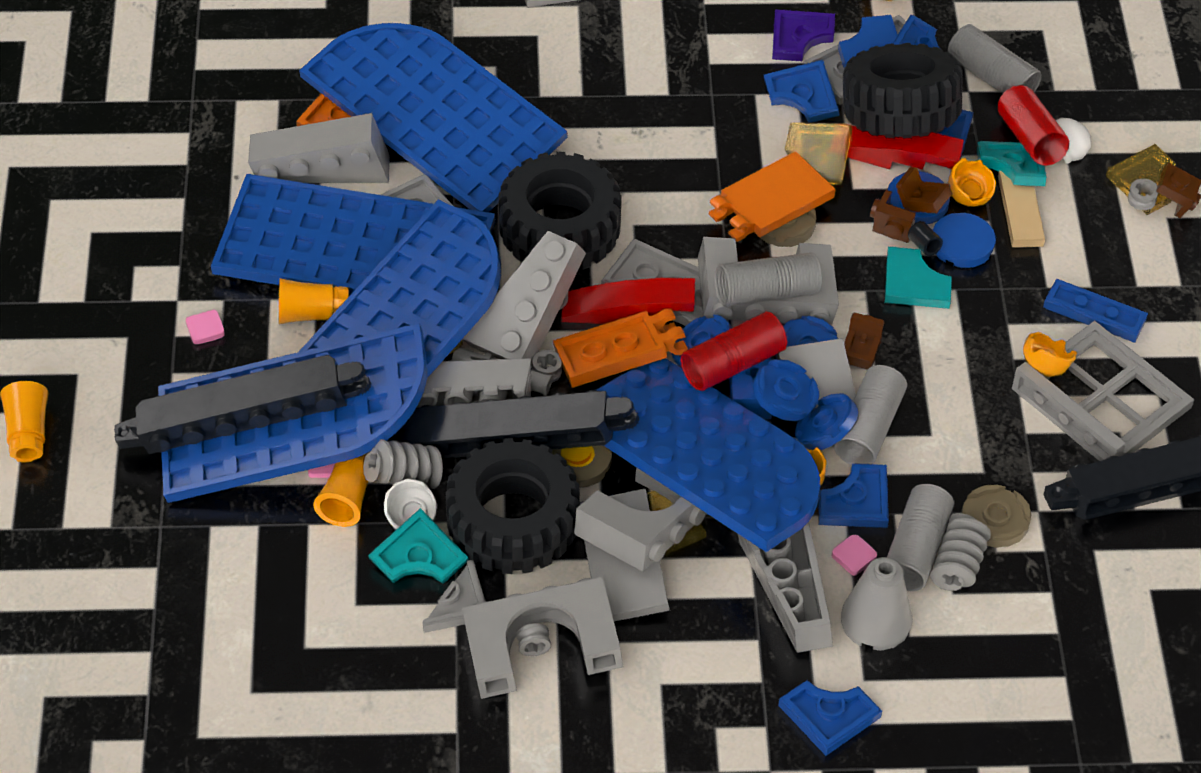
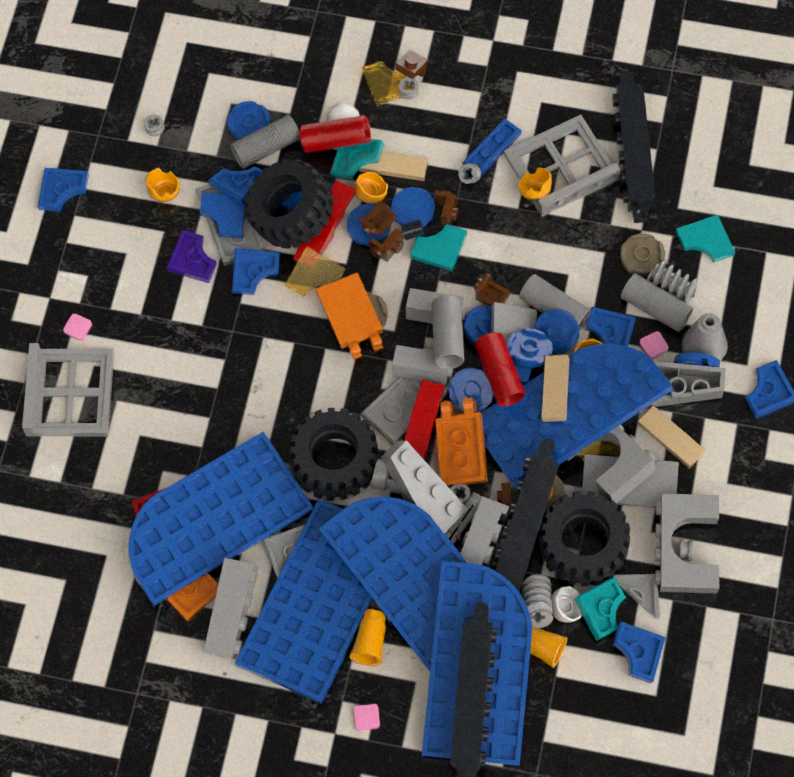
camera: 70 degrees left, 15 degrees up
(366, 612) = (640, 649): none -> blue tile
(711, 598) = (671, 437): none -> tan tile
(726, 419) = (555, 388): none -> tan tile
(832, 595) = (697, 359): none -> blue tile
(975, 273) = (449, 201): none -> reddish brown bracket
(1028, 44) = (246, 119): none -> blue tile
(1040, 287) = (475, 172): none -> light grey bush
(1057, 591) = (708, 237): none -> teal tile

